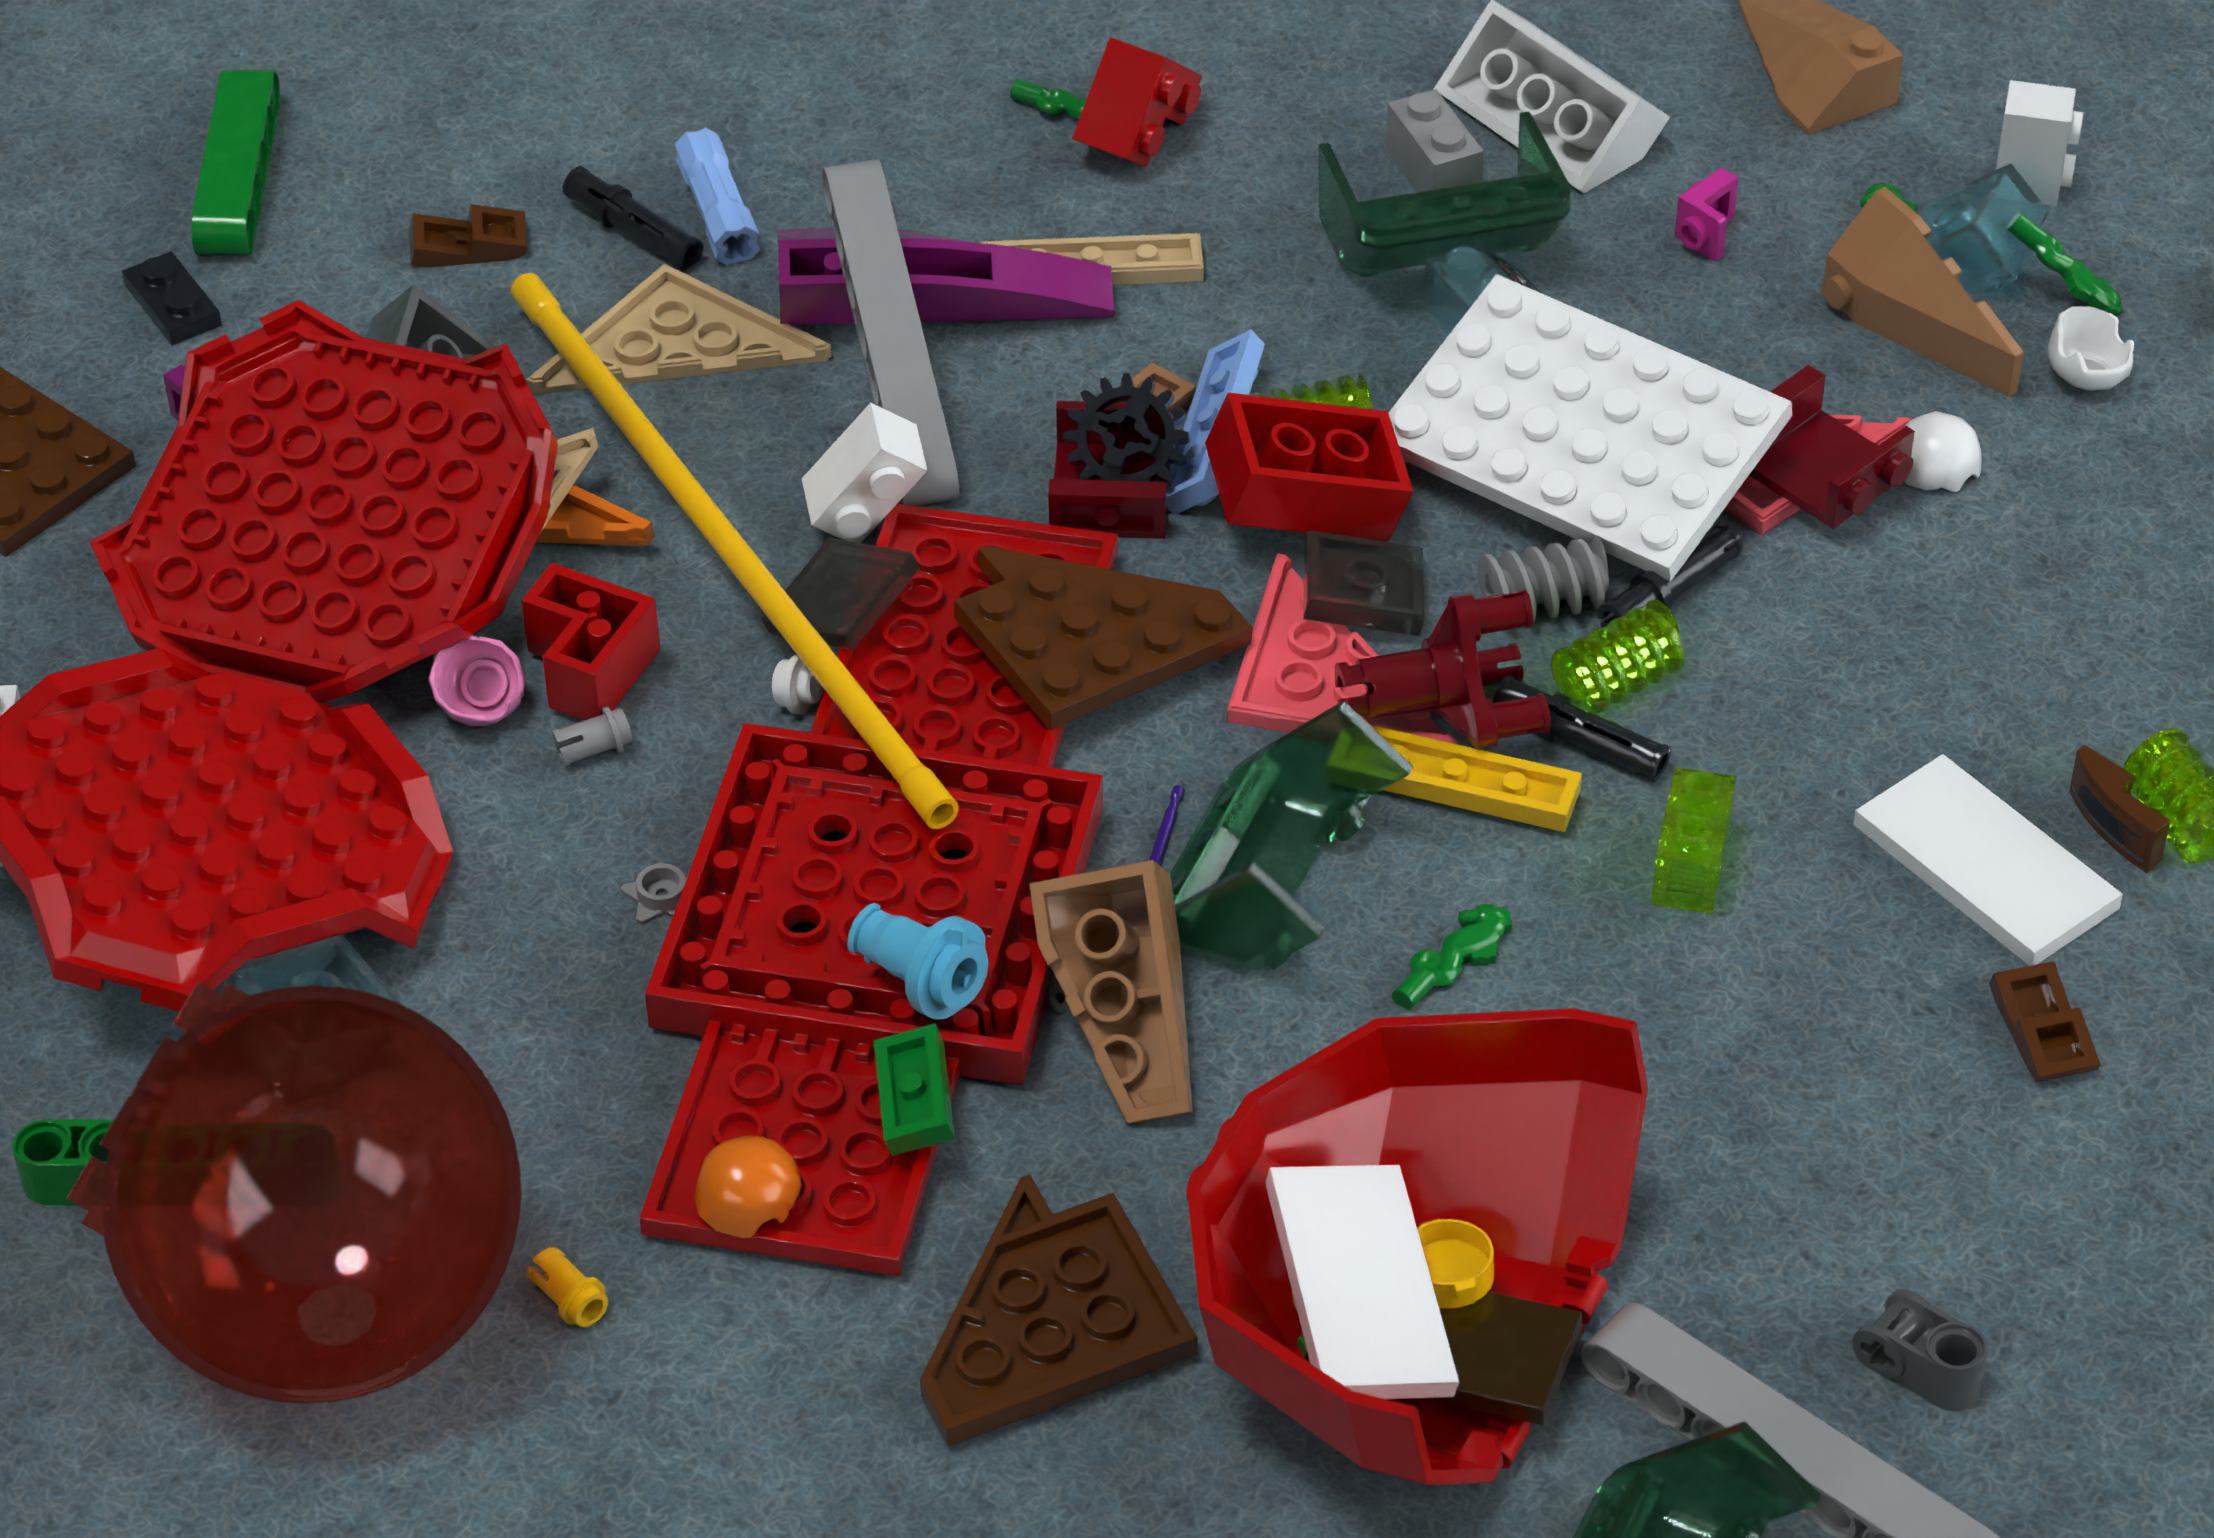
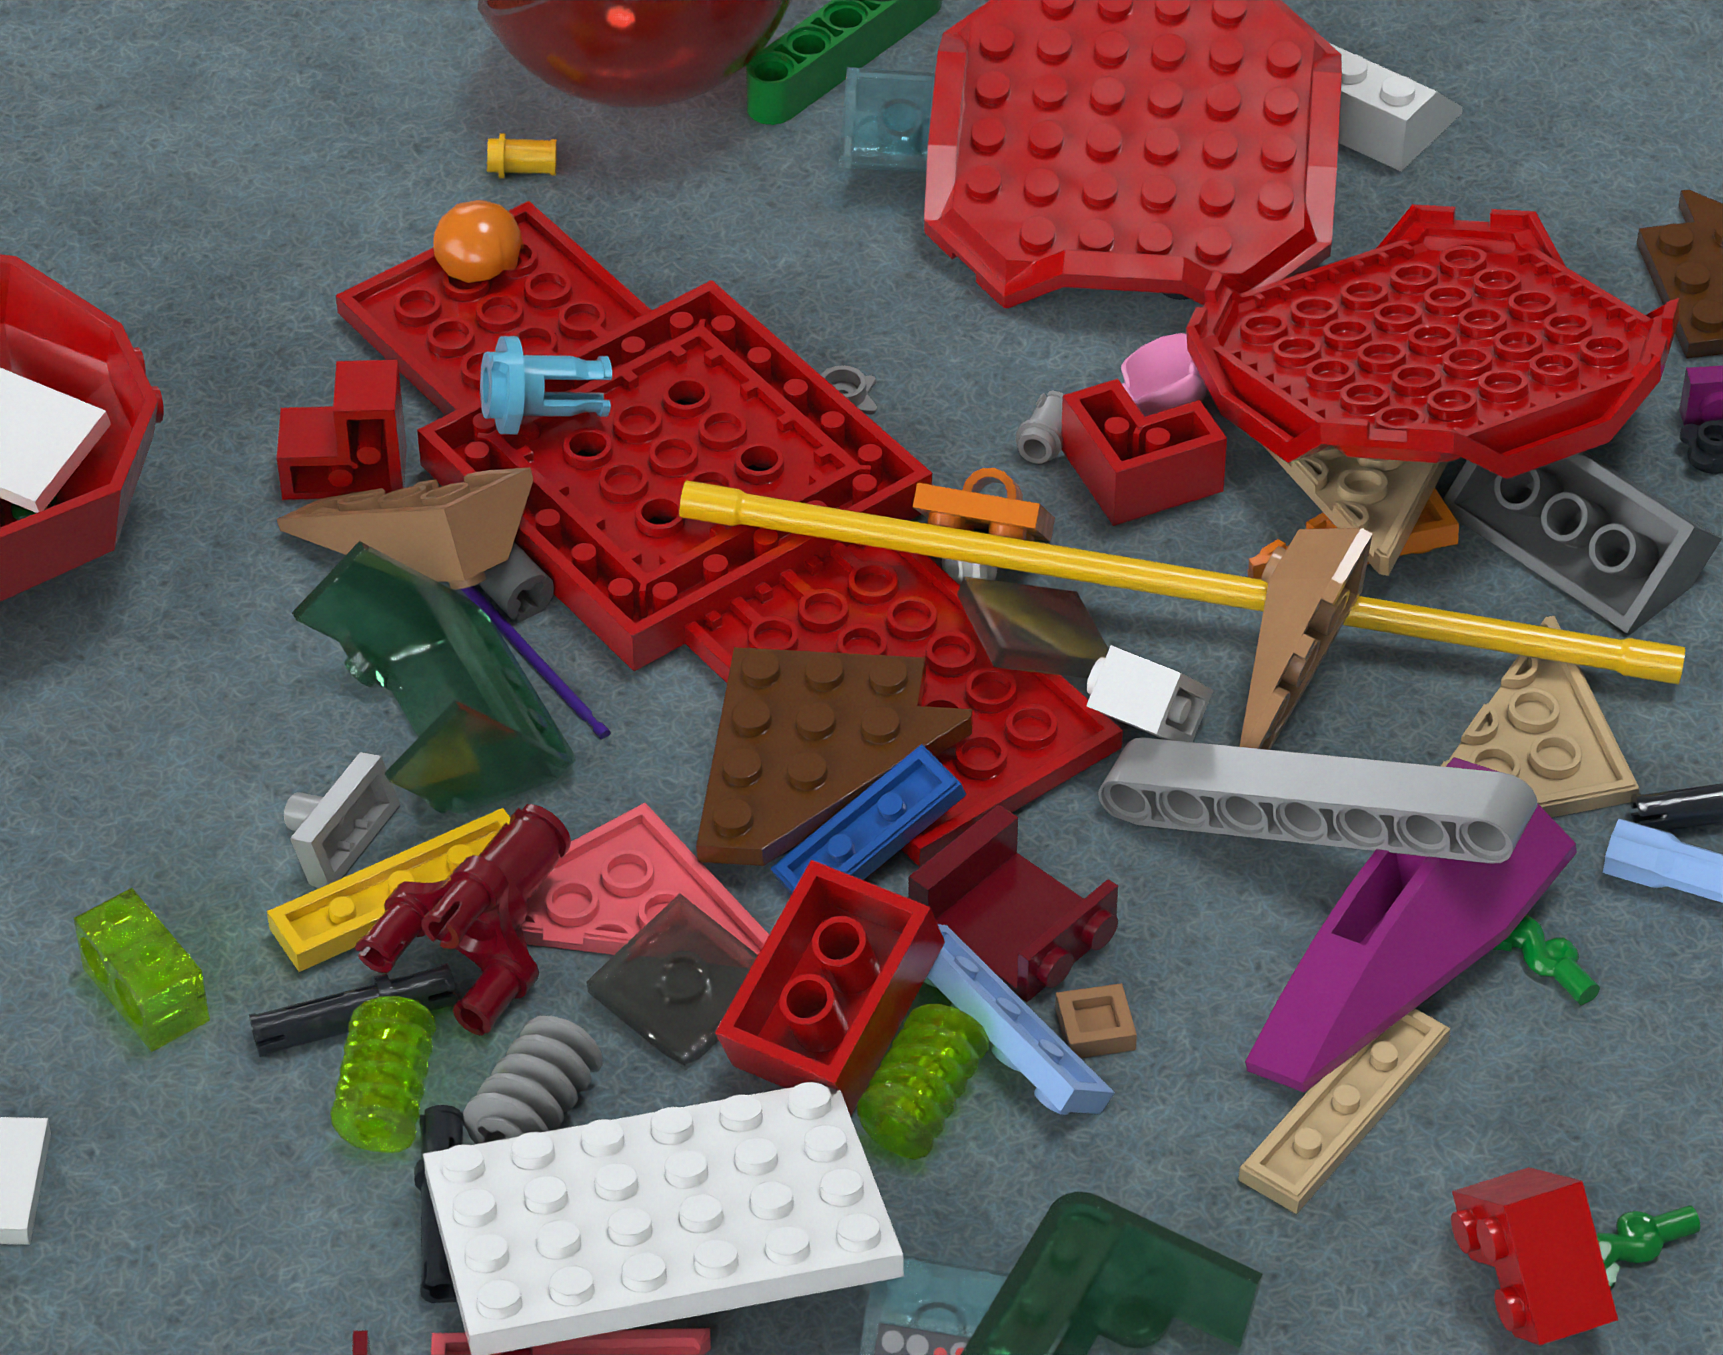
camera: 130 degrees right, 0 degrees up
(732, 413) = (1304, 609): none -> medium nougat wedge
(750, 673) = (971, 509): none -> orange plate
(914, 1089) = (439, 350): green plate -> none
(1051, 1317) = (216, 347): reddish brown wing -> none
(1065, 1104) = (346, 445): none -> red brick
(1099, 544) = (877, 820): none -> blue tile
(1137, 414) = (1013, 897): black gear -> none
(1440, 843) = (343, 822): none -> light grey tile
(1472, 943) = (235, 791): green animal -> none

